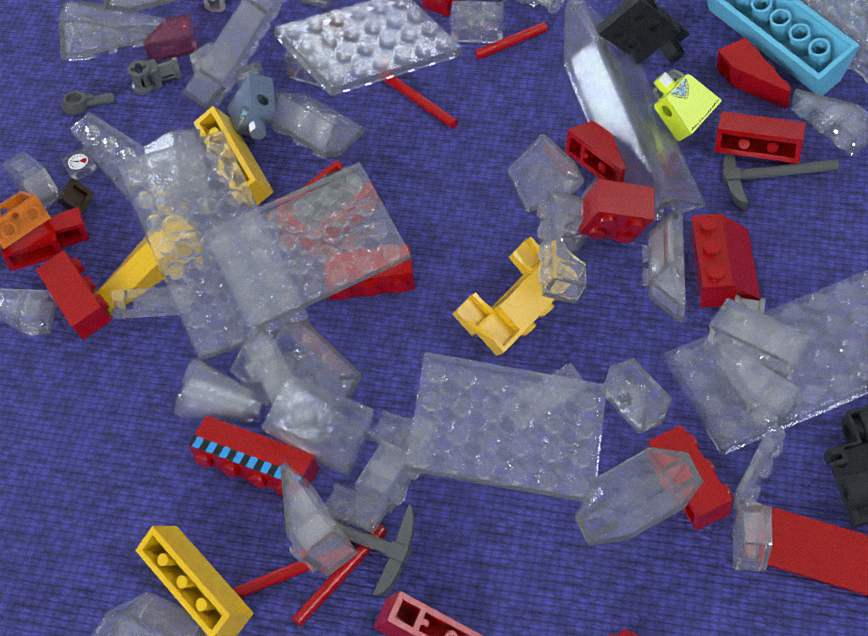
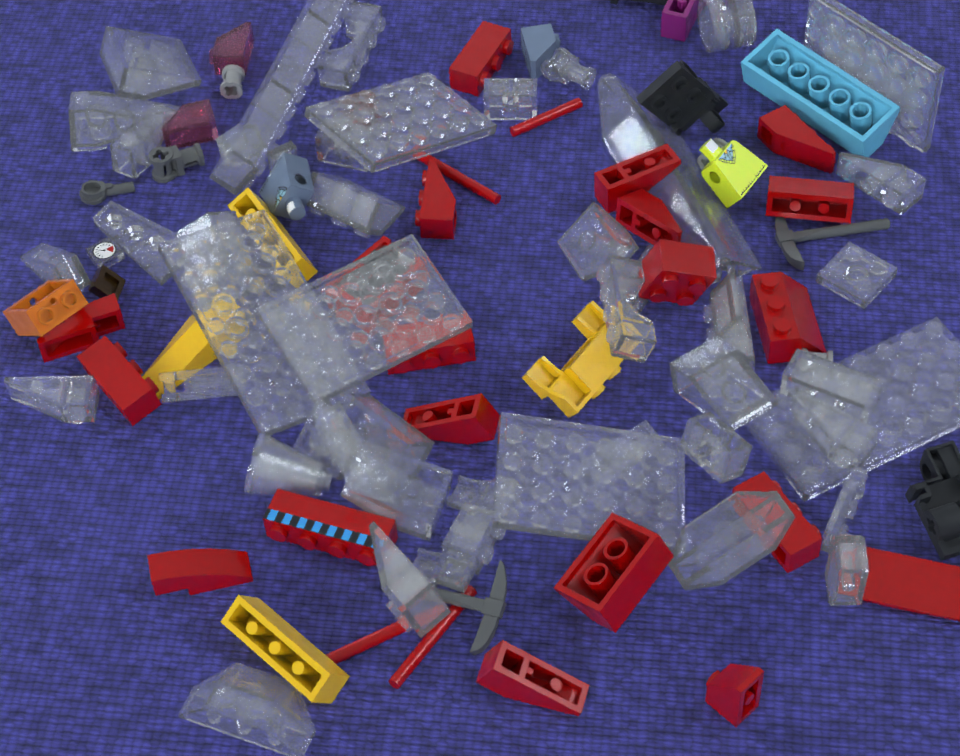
camera: 10 degrees left, 5 degrees down
(113, 59) = (132, 147): none -> clear slope
(124, 493) = (198, 570): none -> red slope
(385, 352) = (456, 420): none -> red slope
(394, 133) = (438, 206): none -> red slope
(521, 522) = (614, 571): none -> red slope
(587, 105) = (633, 174): none -> red slope
(650, 329) = (721, 382): none -> clear slope
(799, 217) = (856, 275): none -> clear plate

